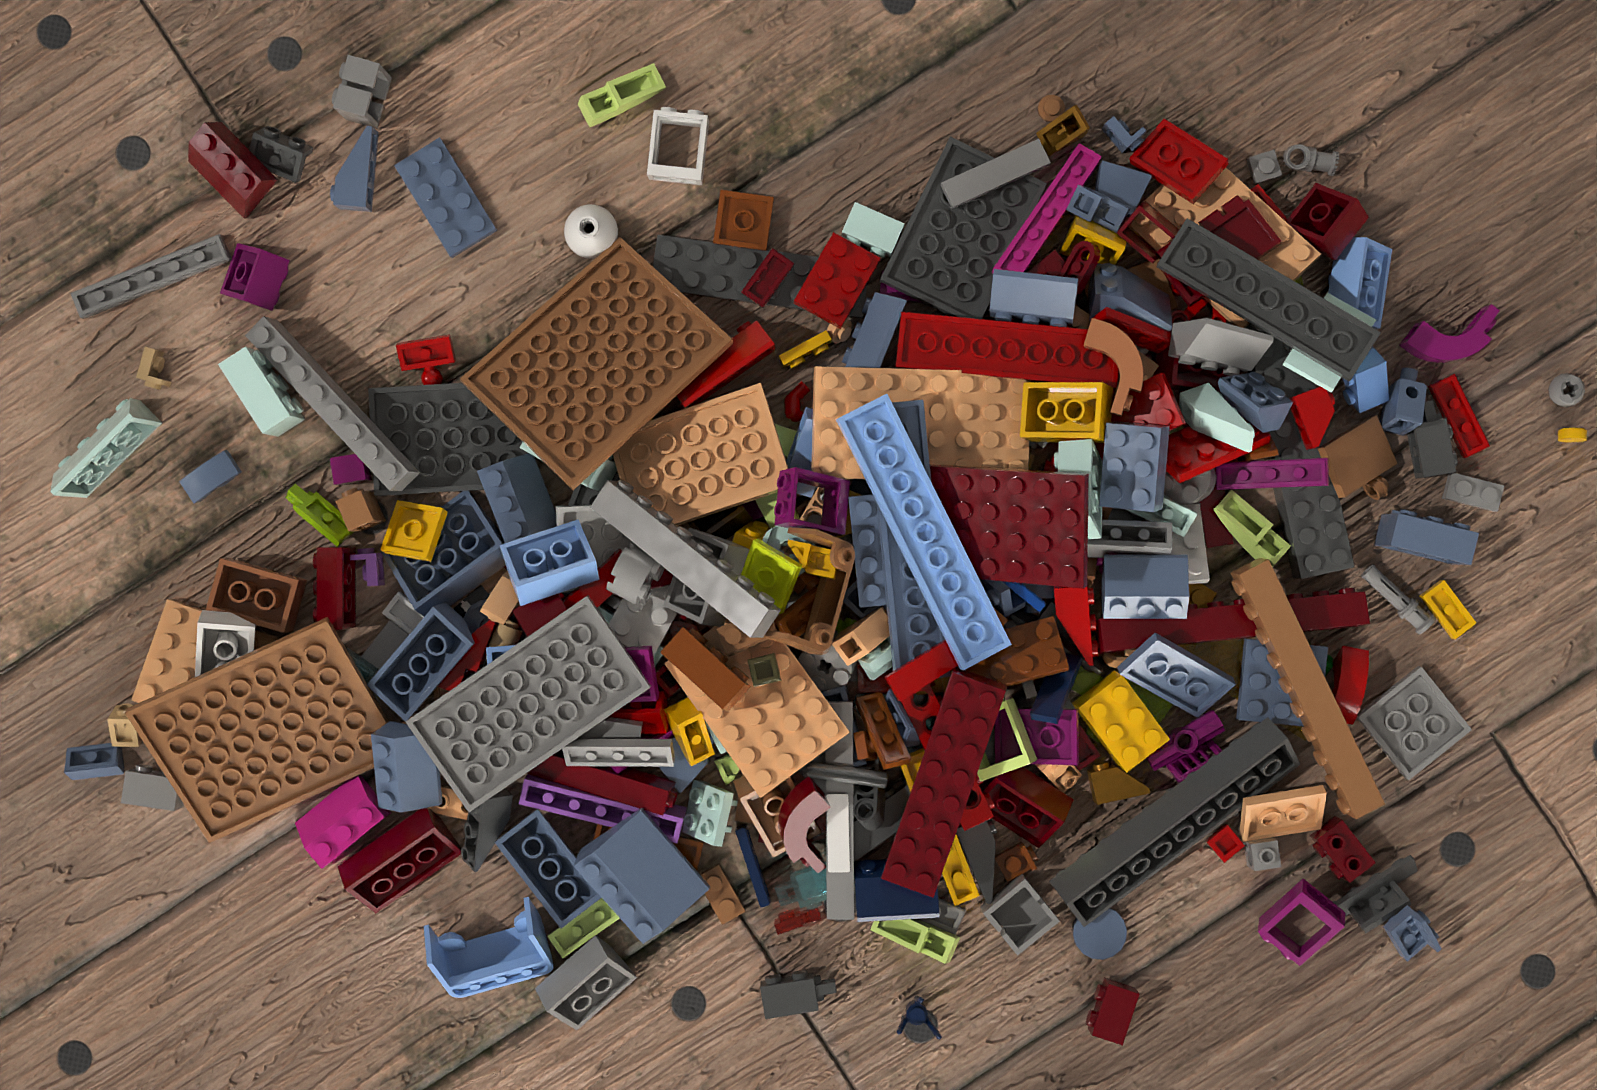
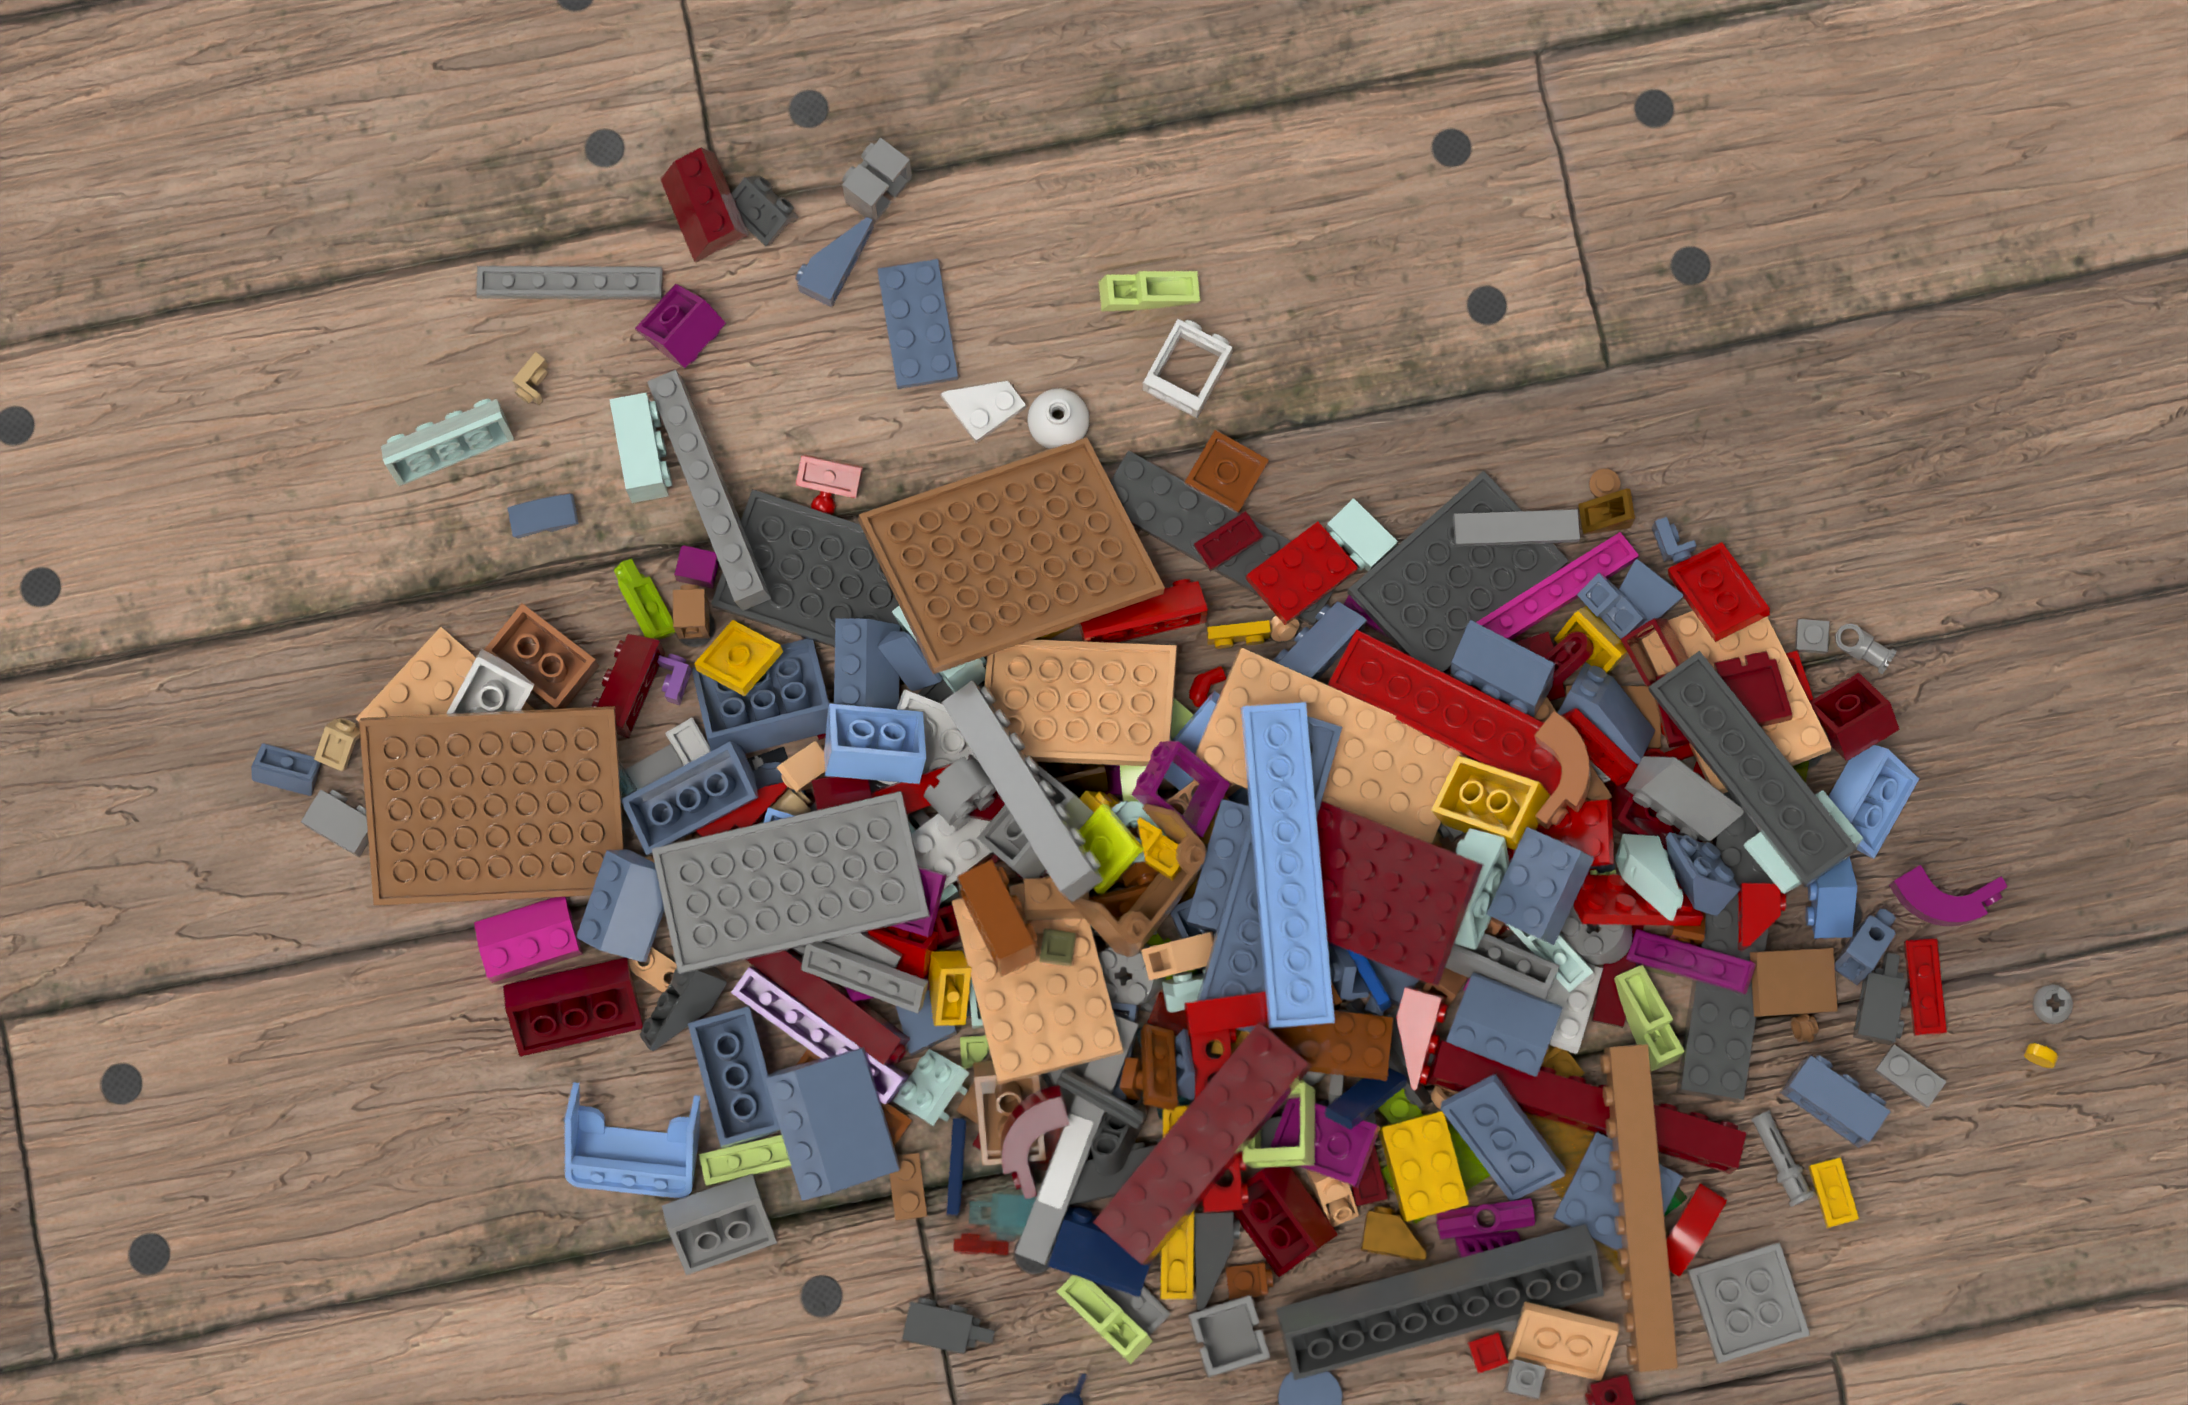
camera: 15 degrees right, 10 degrees down
(527, 245) = (984, 407): none -> white wing
(544, 478) = (908, 660): none -> sand blue slope

